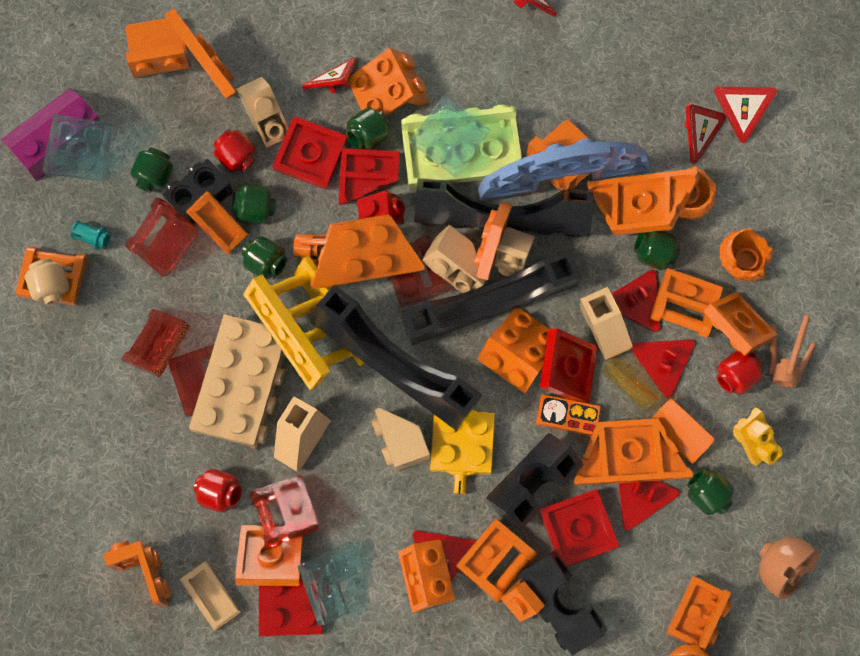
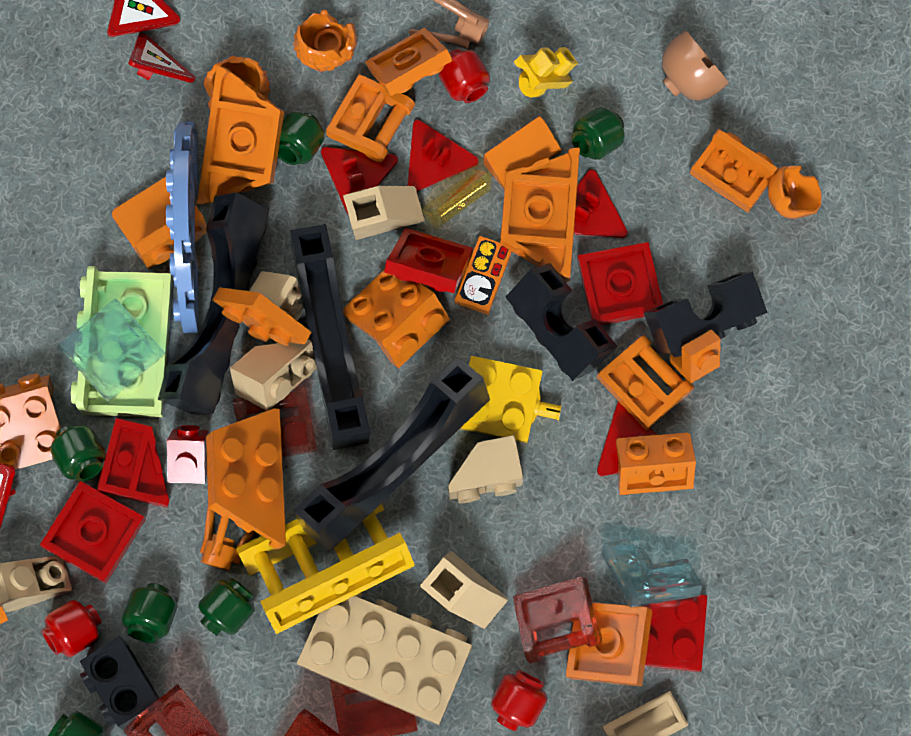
camera: 80 degrees left, 0 degrees up
(217, 222) = (168, 661): orange tile -> none

